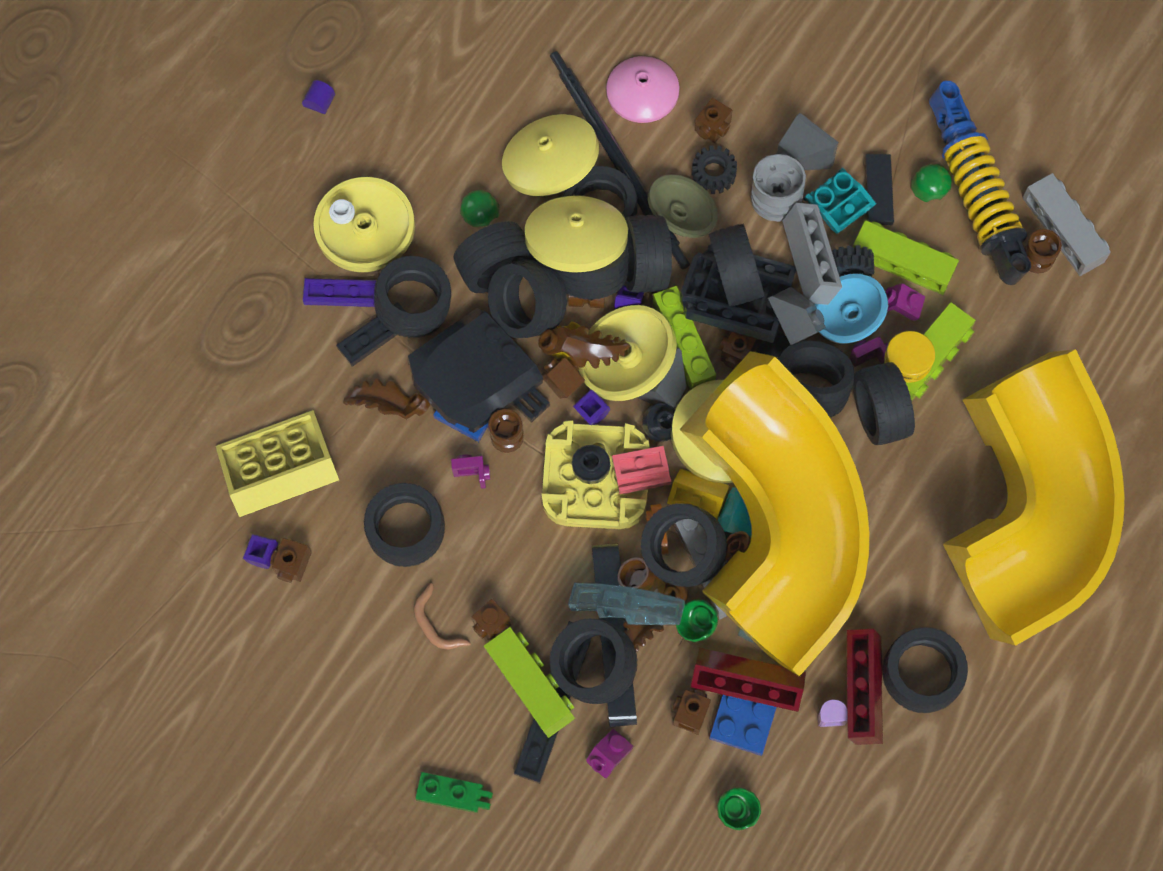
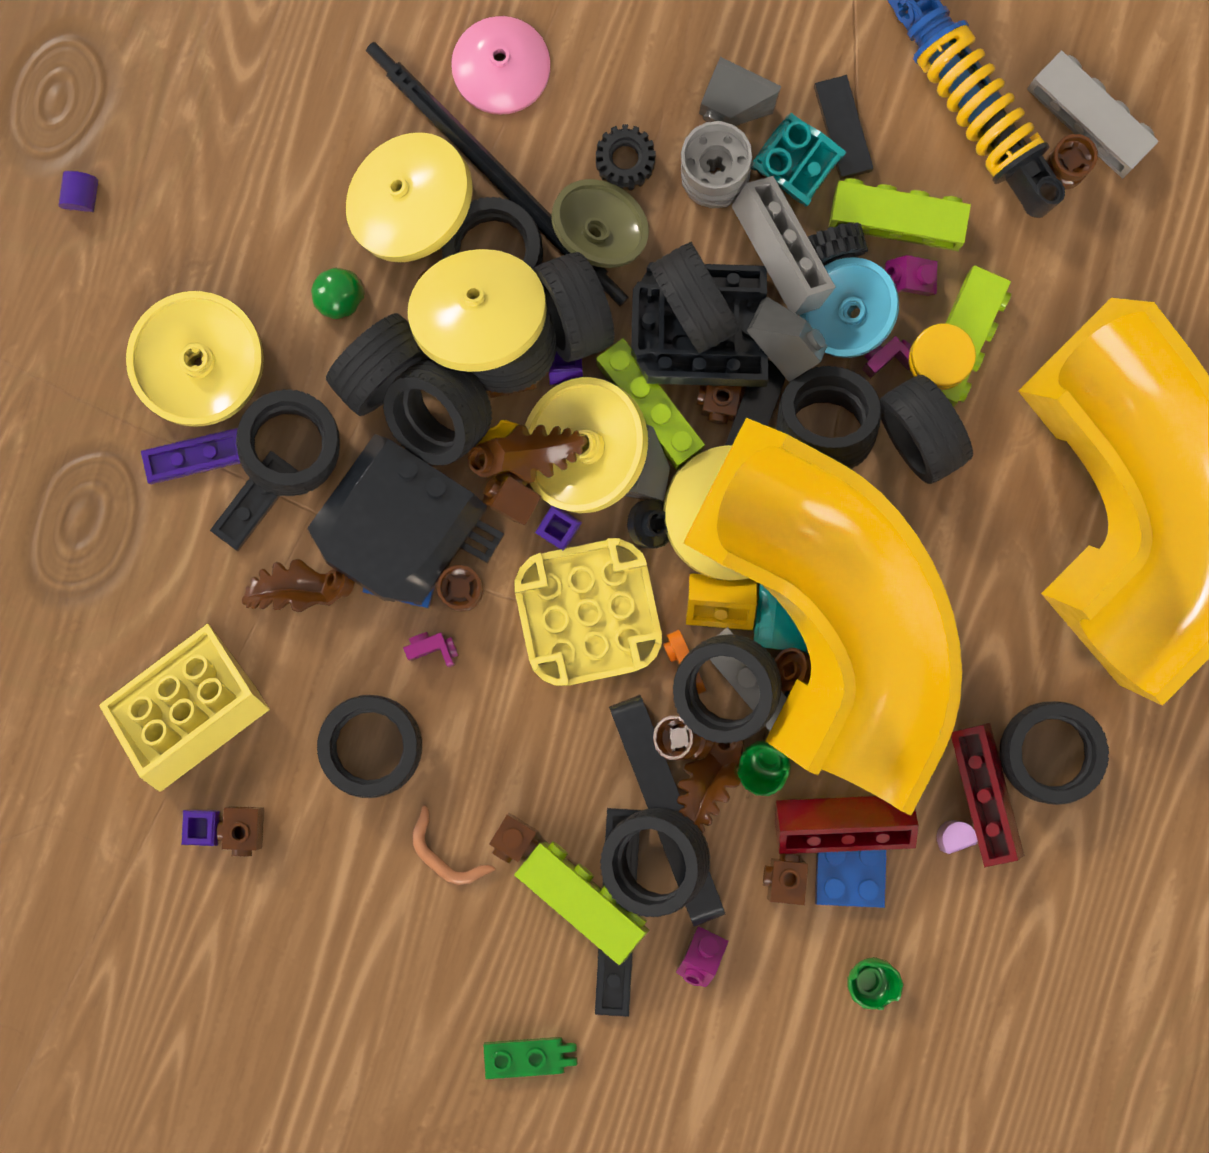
camera: 20 degrees left, 15 degrees up
(342, 211) = (161, 353): white plate -> none
(591, 464) = (579, 605): black plate -> none
(633, 604) = (676, 777): clear light blue slope -> none
(641, 470) = (644, 594): coral plate -> none
(713, 120) = (606, 89): reddish brown brick -> none
(931, 182) = (907, 100): green hair -> none

